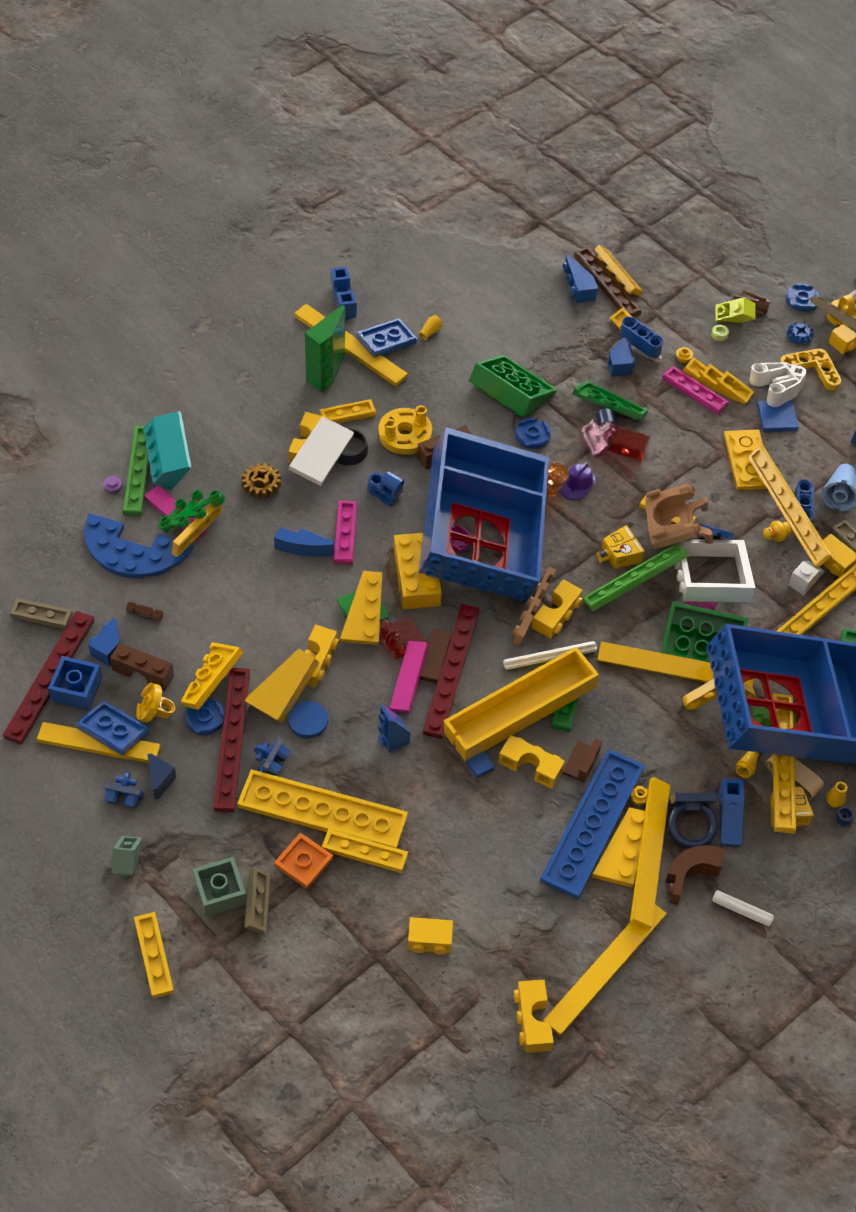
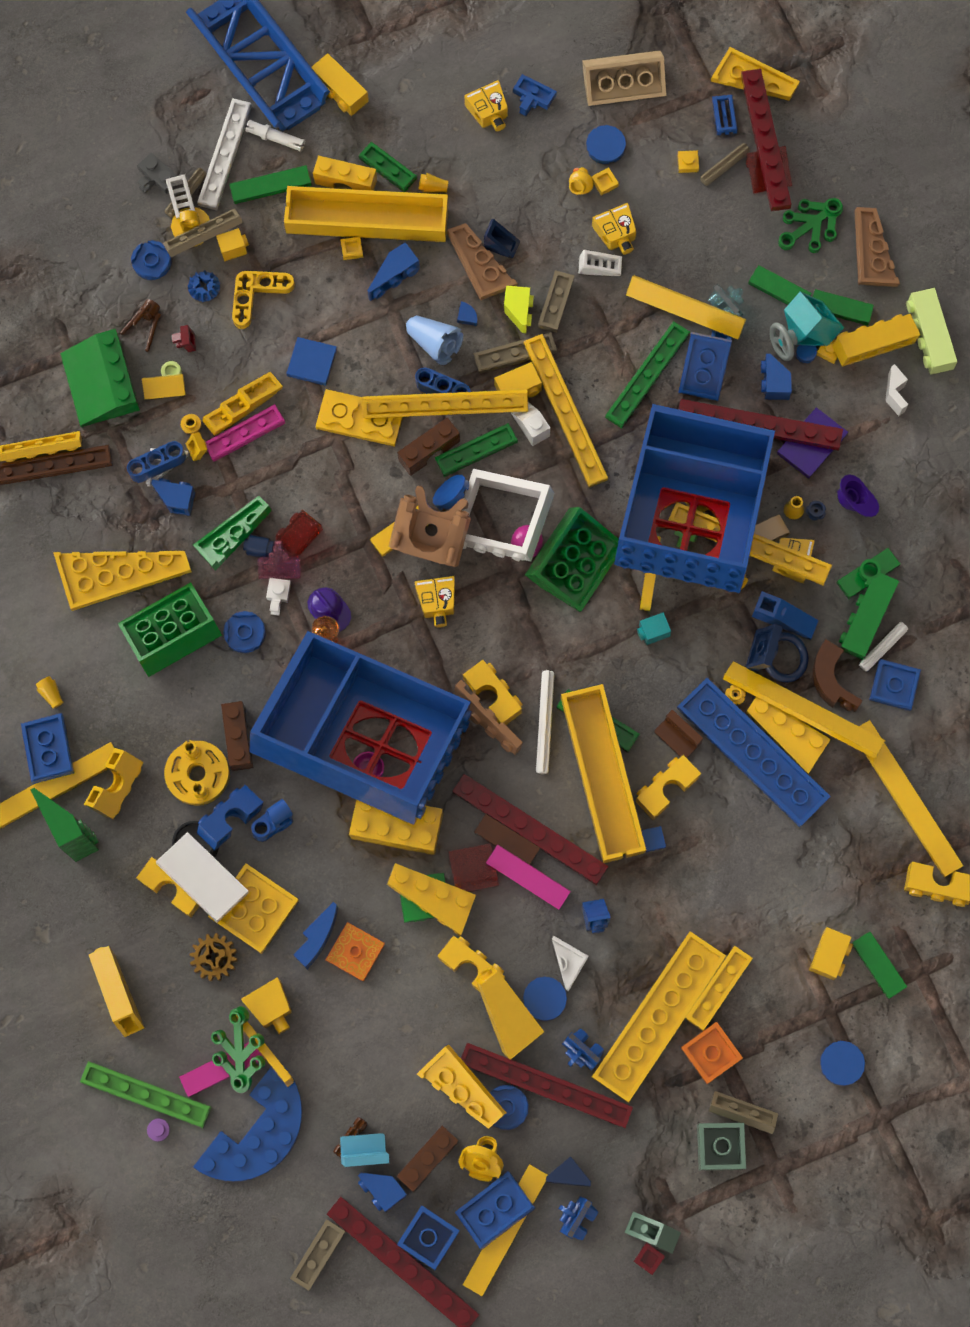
camera: 65 degrees left, 20 degrees up
(101, 856) = (649, 1258): none -> dark red tile
(136, 620) = (363, 1150): none -> medium azure panel
(154, 955) = (772, 1233): yellow plate -> none
(167, 449) = (138, 1053): teal slope -> none
(212, 425) = (116, 991): none -> yellow slope
(235, 526) = (269, 1005): none -> yellow torso
(300, 574) = (355, 951): none -> orange plate
(308, 500) = (260, 911): none -> yellow plate
(331, 976) = (842, 1063): none -> blue tile
(345, 532) = (313, 884): dark pink tile -> none
(346, 730) = (569, 961): none -> white tile
(349, 412) = (143, 828): yellow tile -> none
(359, 381) = (125, 770): none -> yellow arch
(368, 447) = (241, 804): none -> blue arch
(435, 984) = (879, 965): none -> green tile
(539, 337) = (105, 575): none -> yellow wing
(574, 444) = (277, 592): none -> white plate
(581, 281) = (44, 495): blue slope -> none
(619, 316) = (114, 471): yellow tile -> none
(634, 577) = (483, 599): bright green tile -> none
(656, 662) = (588, 618): yellow tile -> none
(668, 361) = (196, 446): none -> yellow plate
(670, 713) = (654, 629): none -> teal brick
(692, 292) = (99, 378): none -> green slope
(705, 329) = (163, 386): none -> yellow tile
(711, 929) = (895, 684): none -> blue tile
(735, 311) = (152, 343): neon yellow slope -> none
(751, 331) = (185, 338): none -> dark red tile
(759, 511) = (416, 454): none -> reddish brown arch
(766, 548) = (476, 449): none -> green tile
(770, 882) = (870, 611): none -> green hinge
(777, 531) = (469, 429): yellow animal -> none
(784, 381) = (269, 322): white connector -> none
(807, 877) = (853, 584): none -> green tile

